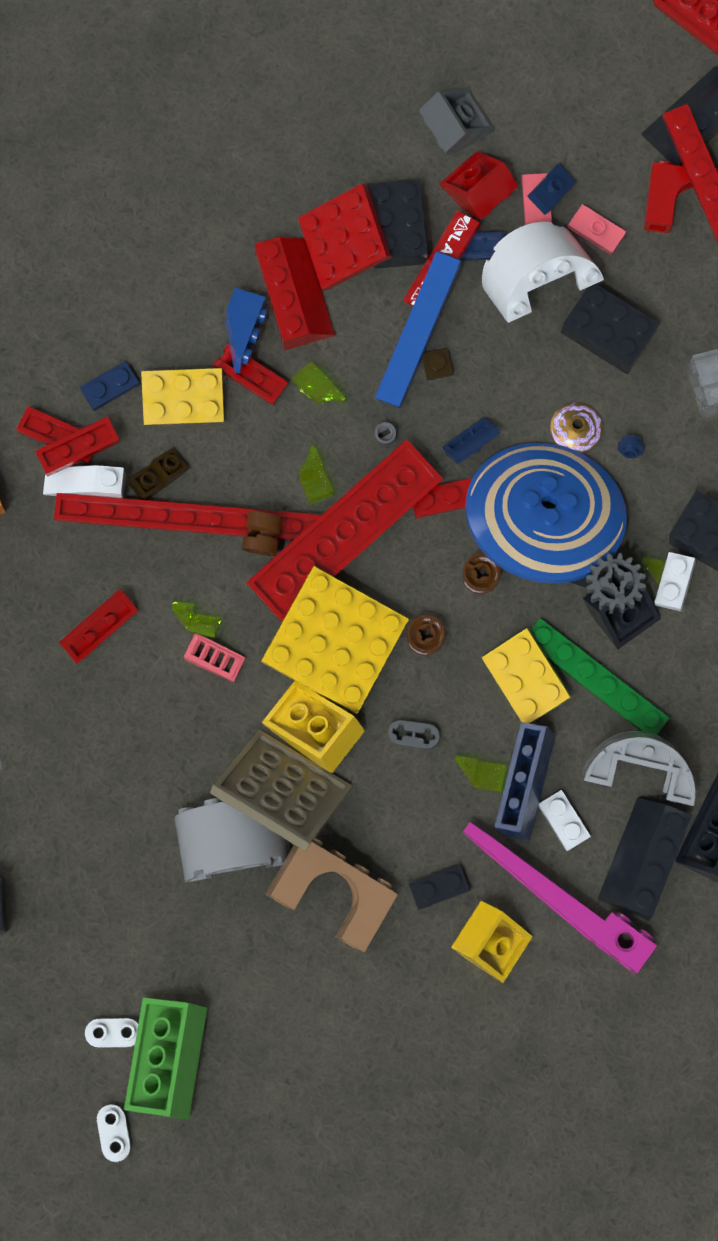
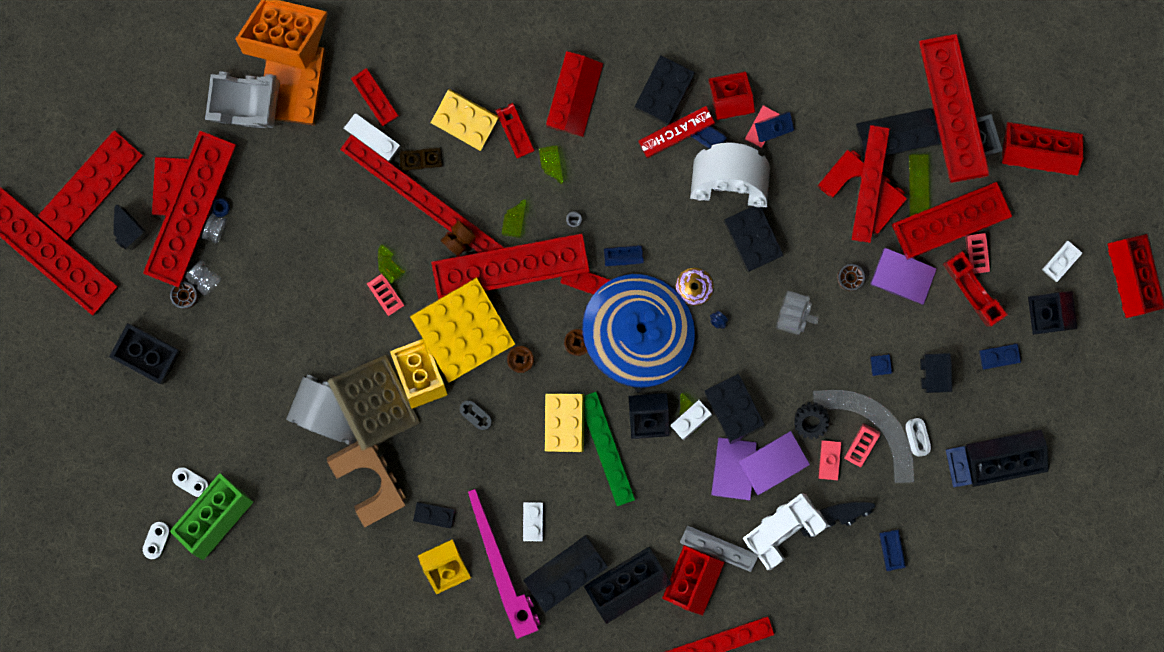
camera: 30 degrees right, 10 degrees up
(77, 446) = (380, 114): red plate -> none
(98, 626) = (327, 232): red plate -> none
(109, 386) = (424, 84): dark blue plate -> none
(242, 323) = (530, 94): blue slope -> none
(344, 237) = (625, 80): red plate -> none
(418, 330) = (634, 166): blue tile -> none
(437, 364) = (633, 194): dark brown plate -> none
(455, 119) = (744, 44): dark grey slope -> none
(483, 774) = (502, 464): clear neon green slope -> none
(525, 781) = (523, 485): dark blue brick -> none
(596, 229) = (787, 169): coral plate -> none
(625, 579) = (658, 405): dark grey gear -> none
(645, 750) = (603, 513): light grey cylinder -> none

